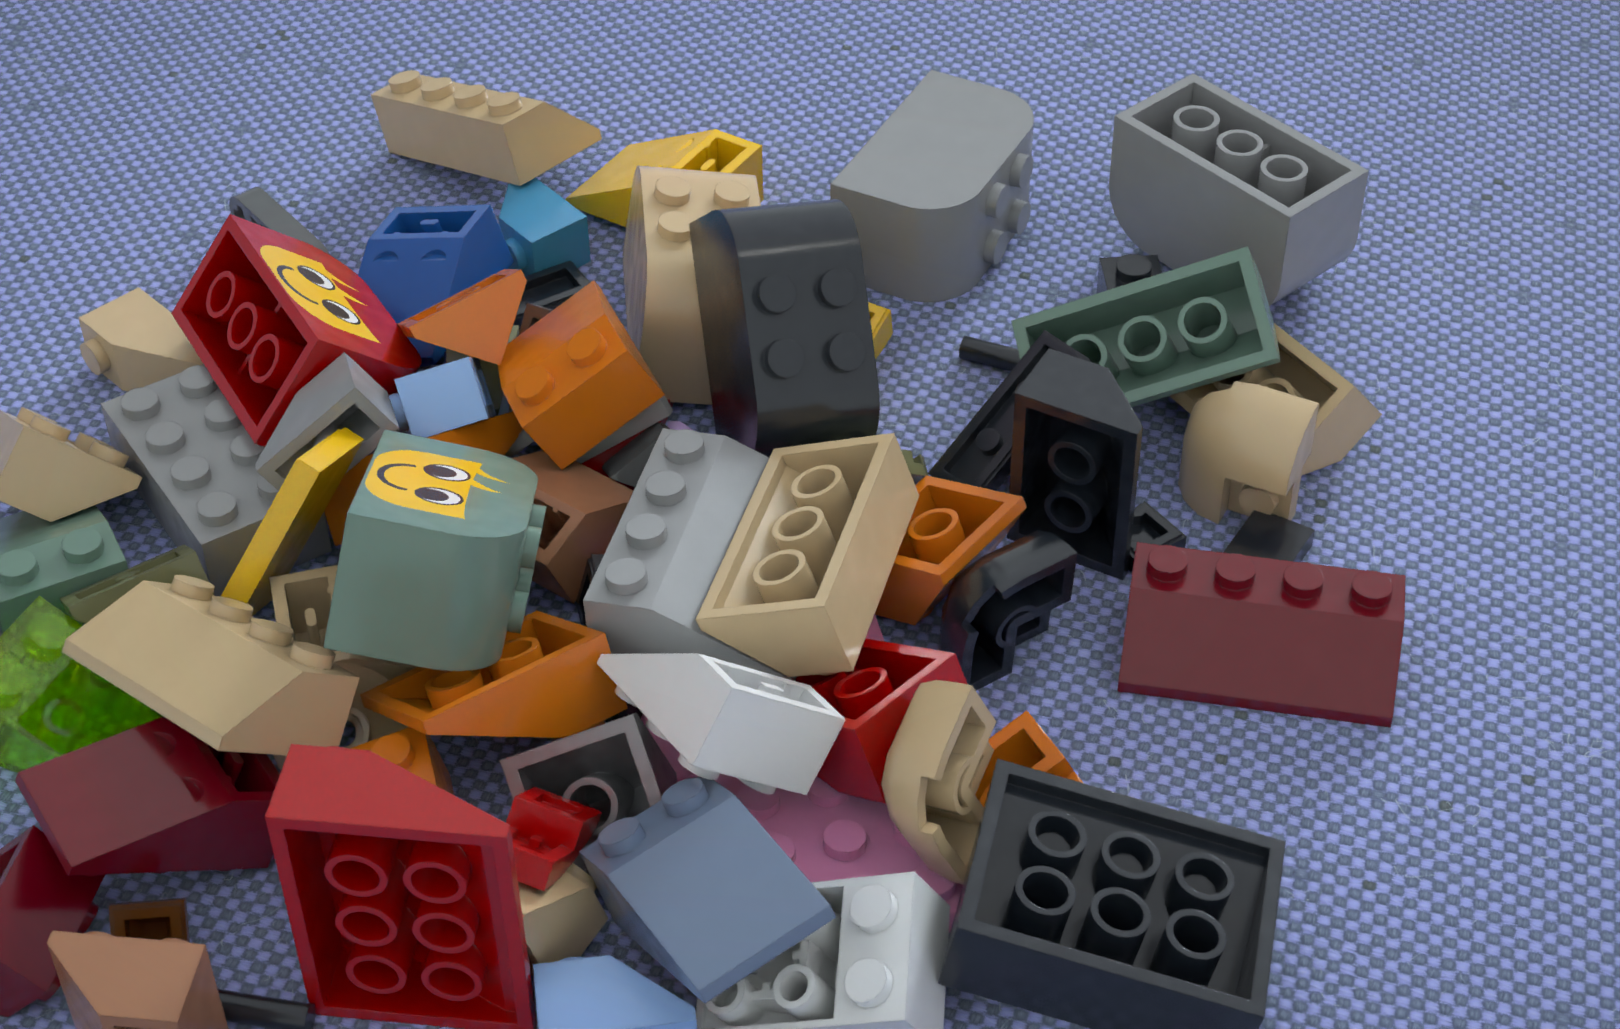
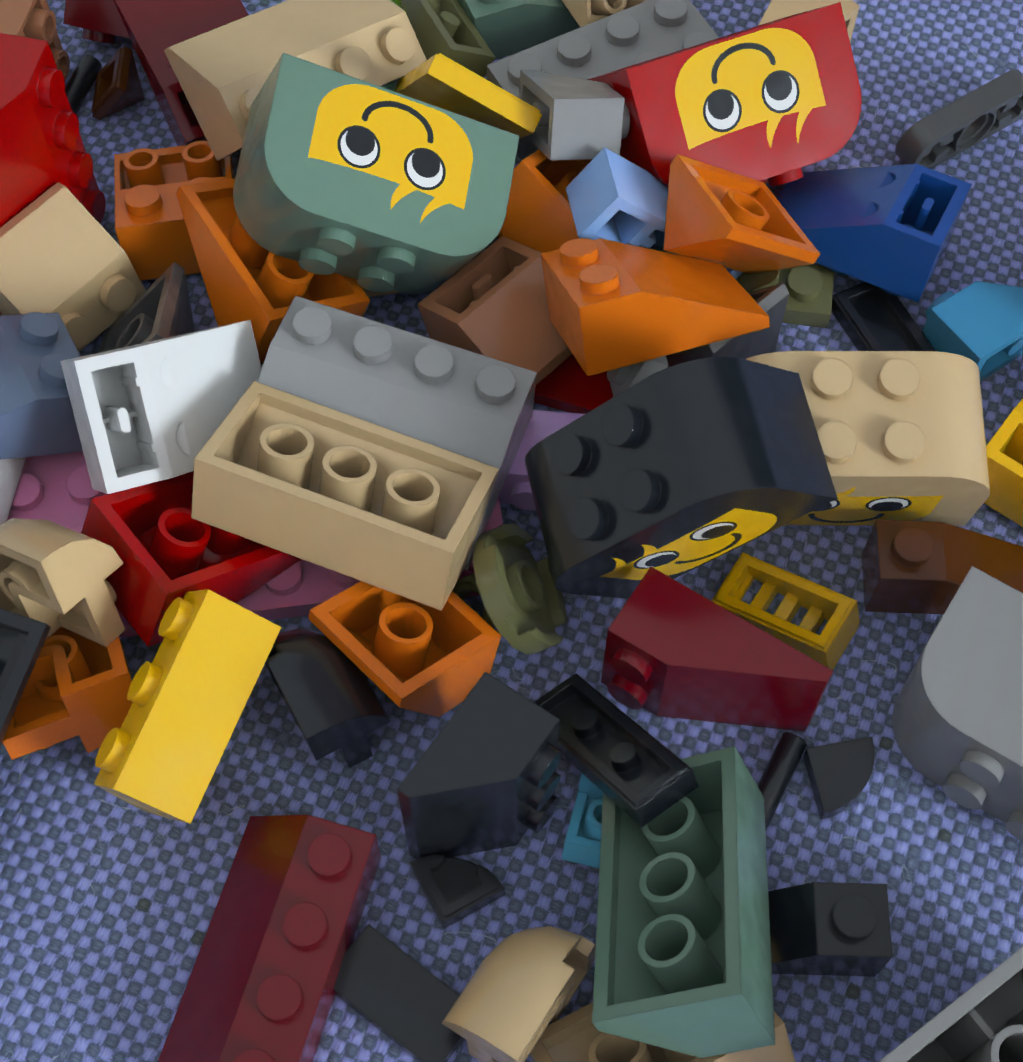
camera: 95 degrees right, 20 degrees up
(548, 835) = (77, 286): red slope -> none
(630, 461) = (571, 390): dark grey slope -> none
(919, 367) = (705, 663): none -> dark red slope
(986, 318) = (839, 773): none -> black tile
(1072, 671) = (185, 705): none -> yellow slope

